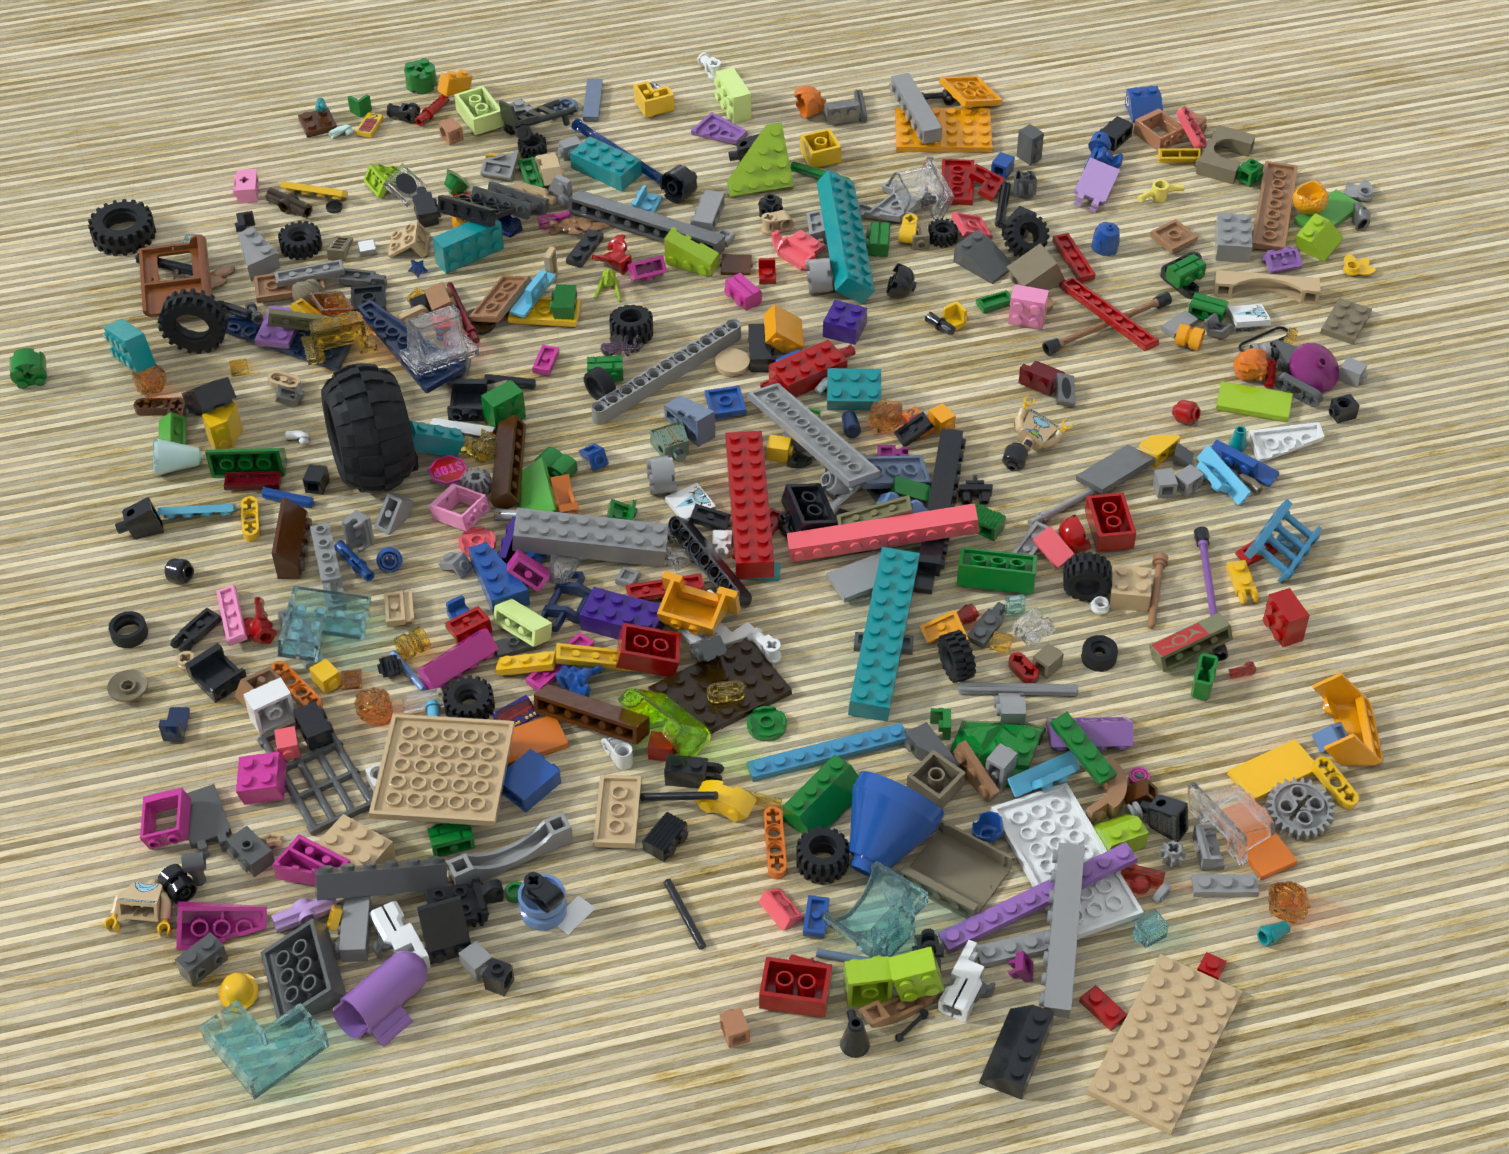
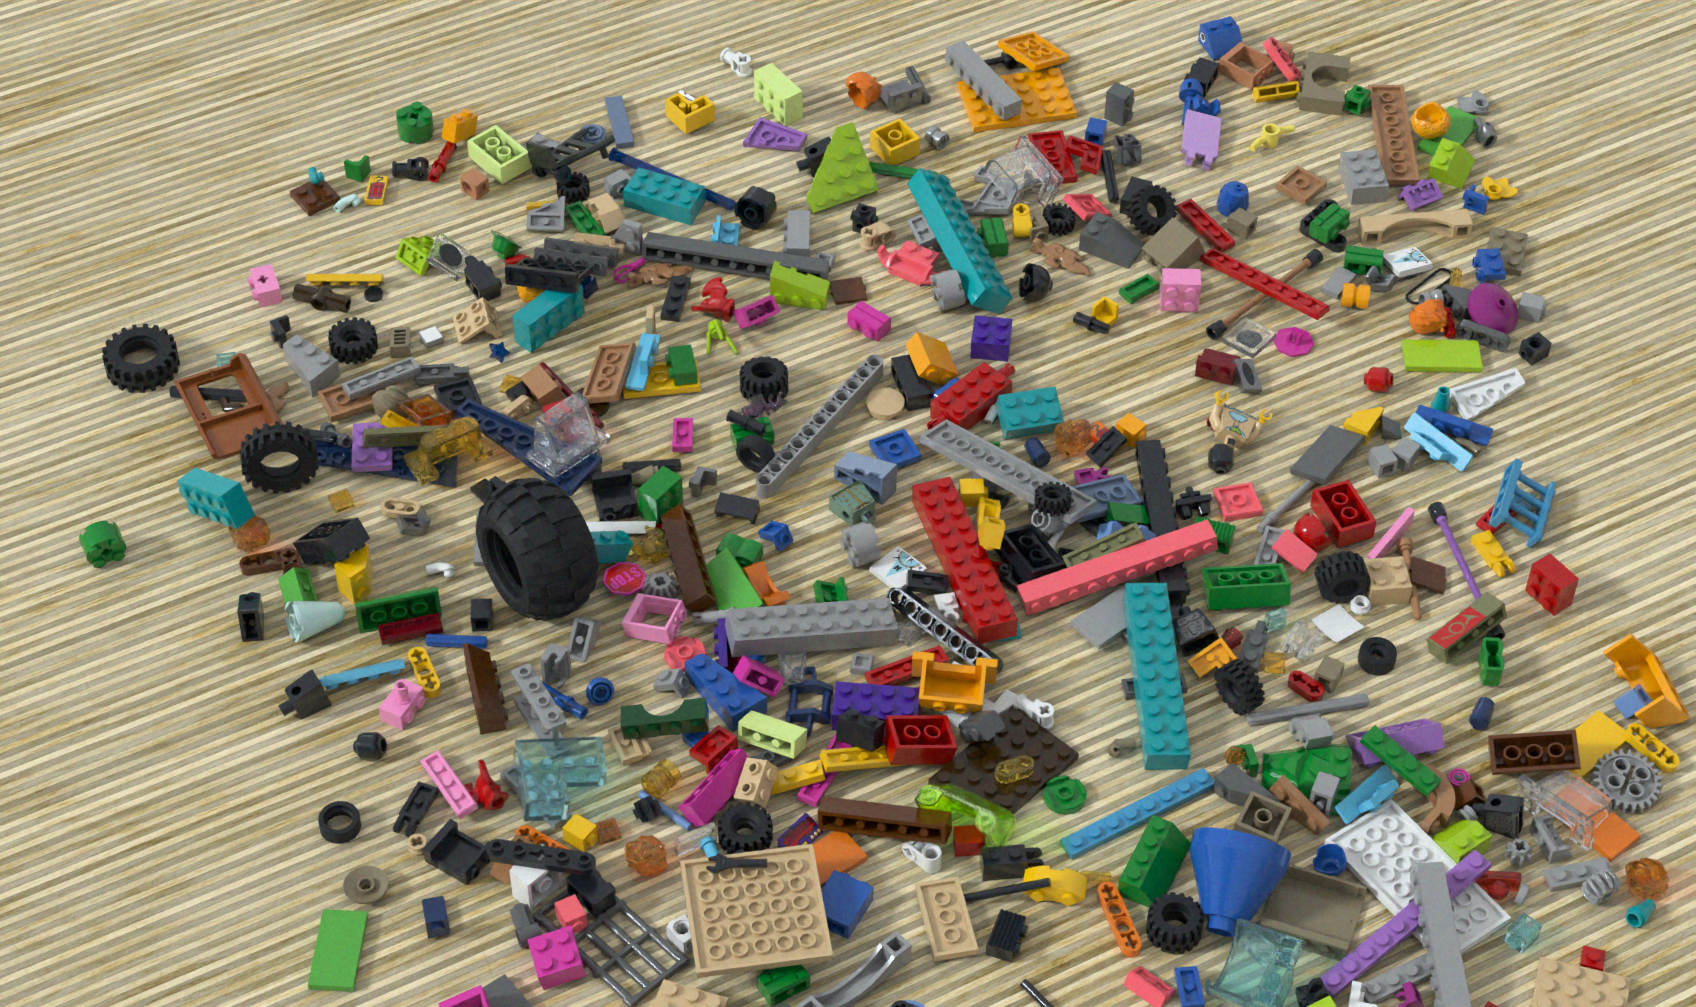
camera: 15 degrees left, 0 degrees up
(84, 736) = (338, 950): none -> bright green tile
(123, 447) = (249, 608): none -> black torso
(219, 540) = (402, 704): none -> bright pink brick
(247, 742) = (524, 924): none -> dark grey piece
(286, 692) = (562, 859): none -> black piece
(429, 723) = (724, 863): none -> black piece
(453, 594) = (688, 718): none -> dark green arch
(491, 660) = (756, 782): none -> tan brick
(546, 398) = (701, 477): none -> flat silver bracket
(569, 427) = (737, 506): none -> black hinge
(575, 678) = (852, 785): blue animal -> none
(598, 632) = (860, 730): none -> black brick
(599, 357) = (746, 423): none -> black pin
(767, 271) = (885, 293): red bracket -> none
(779, 475) = (988, 525): none -> yellow arch
(831, 689) = (1119, 745): none -> dark tan arm
(838, 462) = (1052, 498): none -> black tyre
(860, 150) = (938, 138): none -> light grey wheel
(930, 716) = (1234, 755): none -> clear orange plate
(933, 260) = (1058, 252): none -> medium nougat piece
(933, 600) = (1193, 630): none -> torso
(1019, 497) = (1238, 501): none -> coral tile
(1073, 618) = (1337, 623): none -> white sticker
(1079, 358) = (1249, 337): none -> clear tile
(1107, 260) = (1242, 223): none -> dark tan brick
(1120, 368) = (1293, 342): none -> dark pink piece
(1146, 552) = (1392, 535): none -> bright pink tile
(1172, 590) = (1427, 575): none -> reddish brown piece
(1181, 722) = (1482, 713): none -> dark blue piece
(1215, 764) = (1533, 752): none -> reddish brown slope
(1239, 900) = (1600, 886): none -> light grey gear
(1248, 669) = (1528, 646): clear red arm -> none
(1324, 329) = (1488, 265): none -> blue bracket
(1331, 273) = (1475, 201): none -> blue bracket

